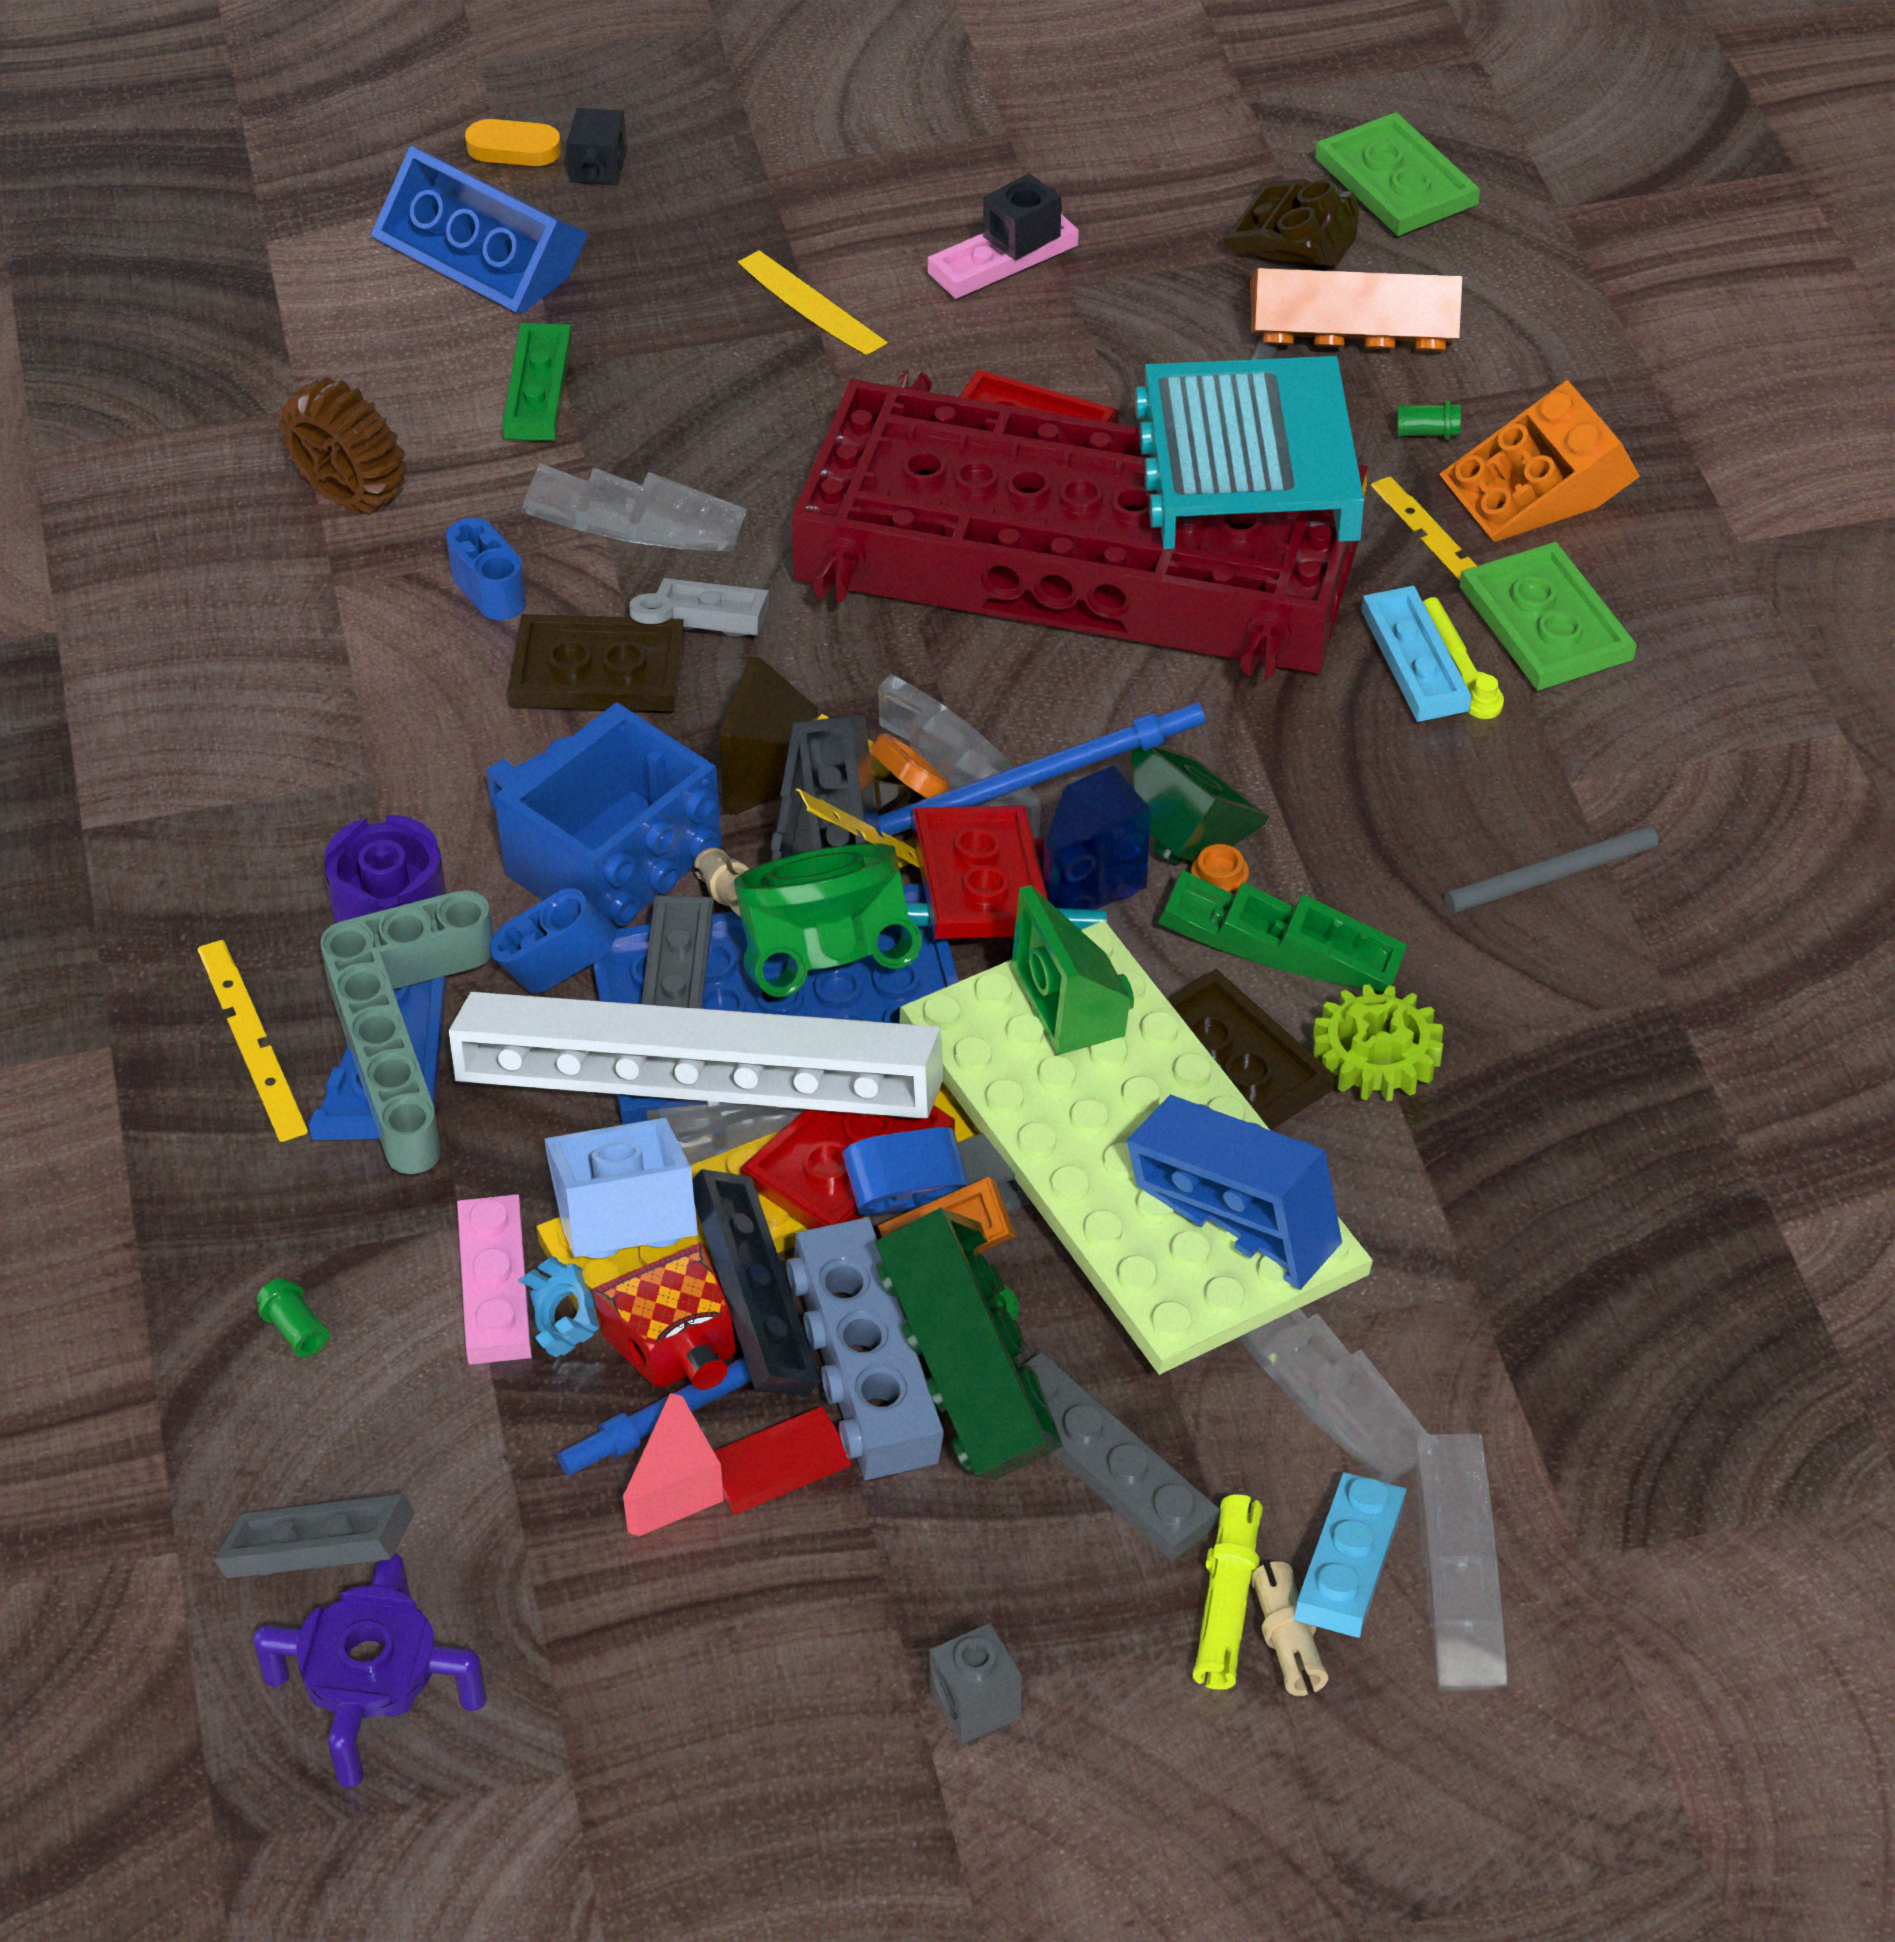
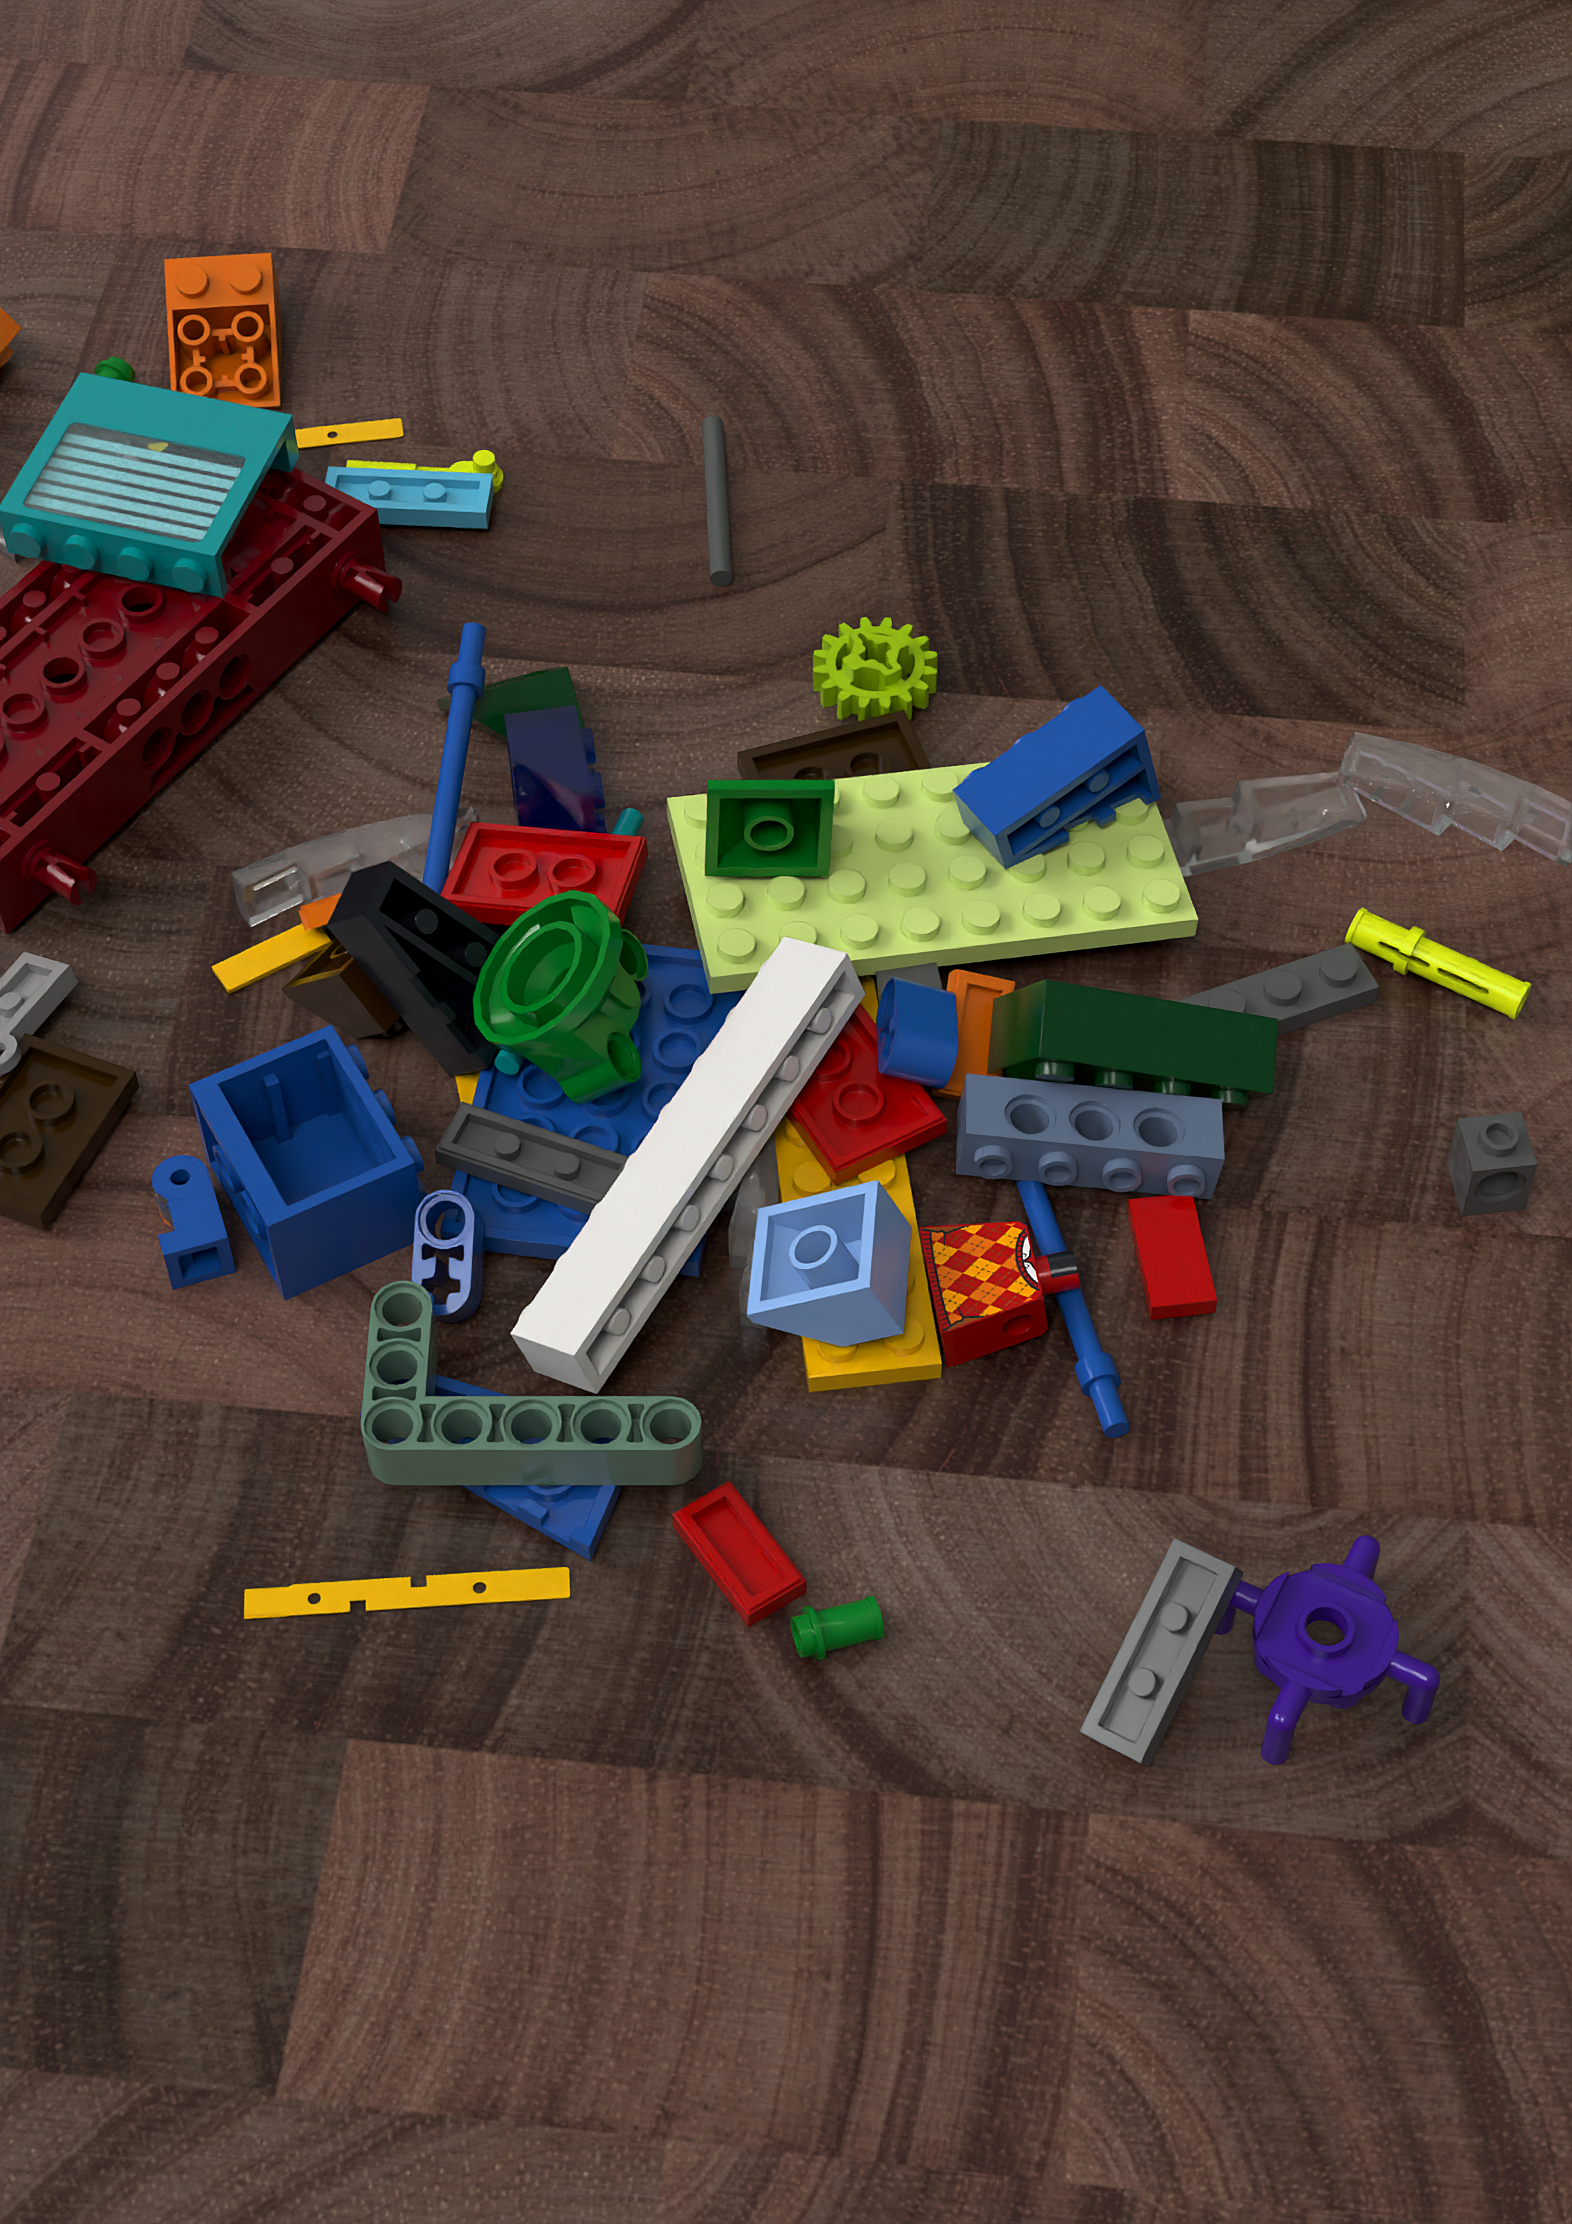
camera: 70 degrees left, 5 degrees up
(351, 1235) = (739, 1553): none -> red tile
(382, 866) = (277, 1391): dark purple brick -> none
(491, 1270) = (851, 1437): bright pink plate -> none
(547, 1293) = (954, 1398): dark azure piece -> none
(674, 1473) = (1161, 1332): coral slope -> none
(719, 874) = (441, 1087): tan pin -> none
(754, 1284) = (961, 1197): black plate -> none
(758, 736) = (245, 998): dark brown slope -> none
(852, 824) = (501, 922): yellow piece -> none
(1222, 867) = (608, 718): orange plate -> none
(1288, 1637) = (1492, 933): tan pin -> none
(1297, 939) = (712, 696): green slope -> none
(1350, 1555) = (1435, 865): medium azure plate -> none
(1547, 616) = (412, 396): bright green plate -> none

